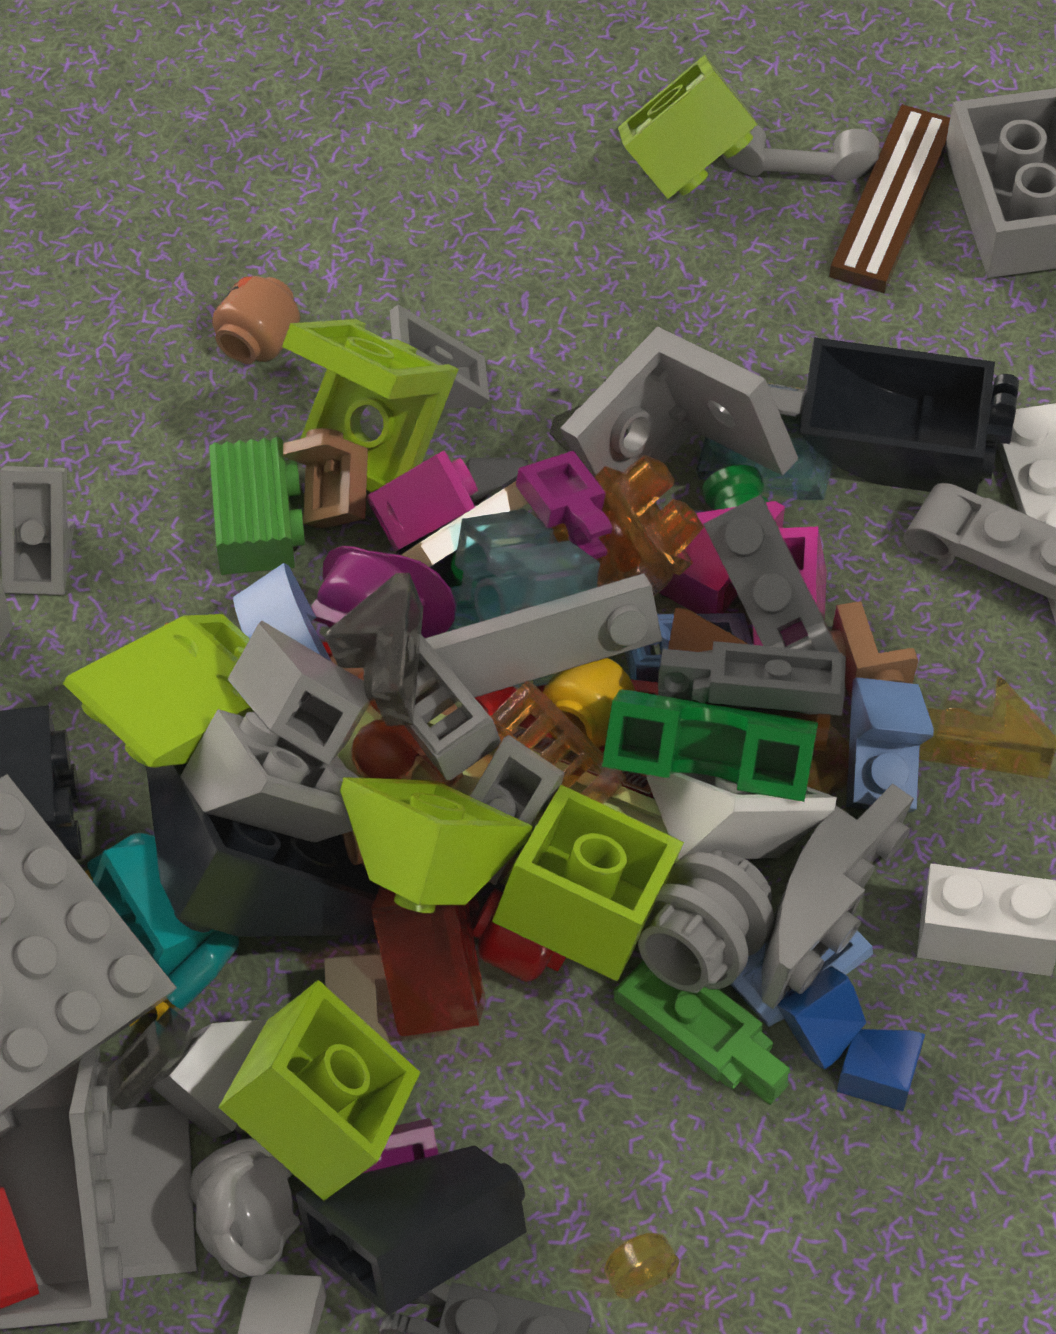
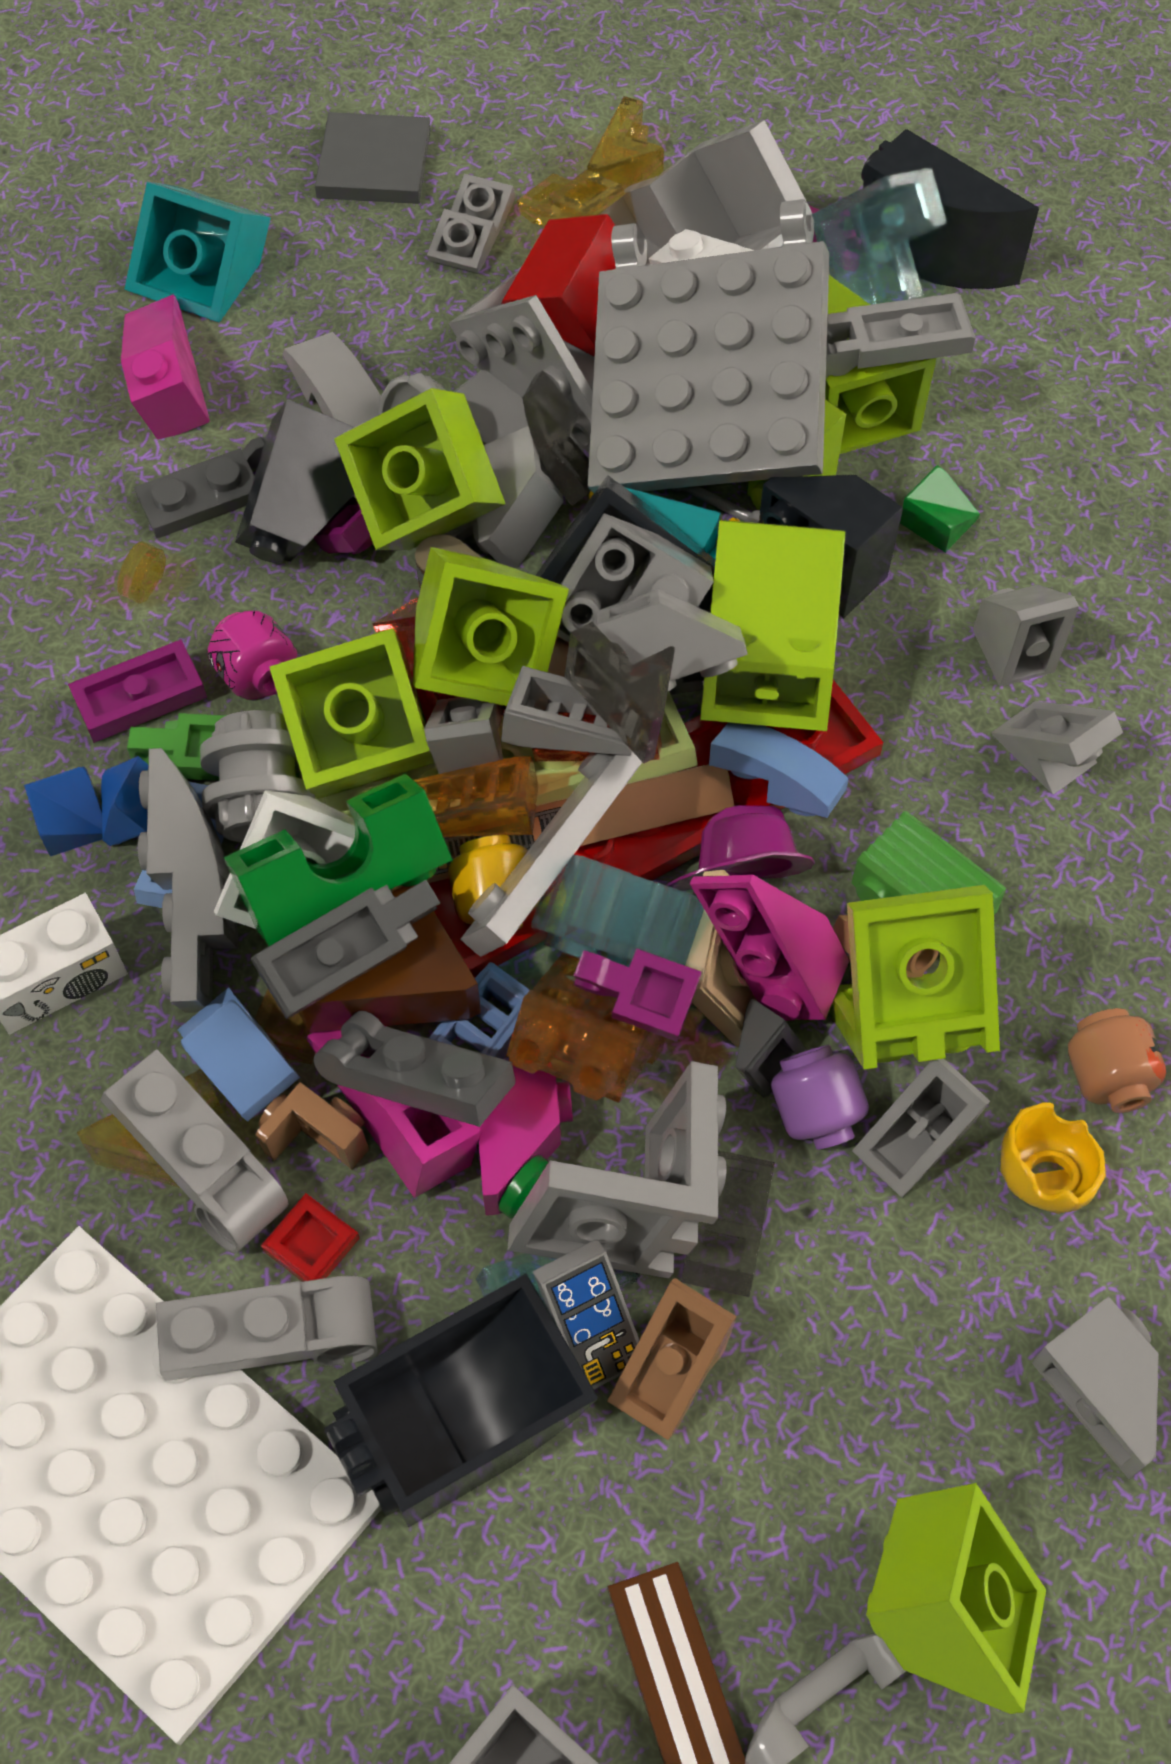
camera: 140 degrees right, 5 degrees up
(374, 281) = (1041, 1137): none -> yellow hair
(470, 172) = (1108, 1381): none -> light grey slope
(483, 424) = (819, 1096): none -> medium lavender head
(605, 1091) = (244, 650): none -> dark pink head
(735, 1140) = (137, 690): none -> magenta plate
(742, 341) = (672, 1359): none -> medium nougat slope
(924, 600) = (310, 1240): none -> red tile
(974, 675) = (197, 1150): none -> light grey plate

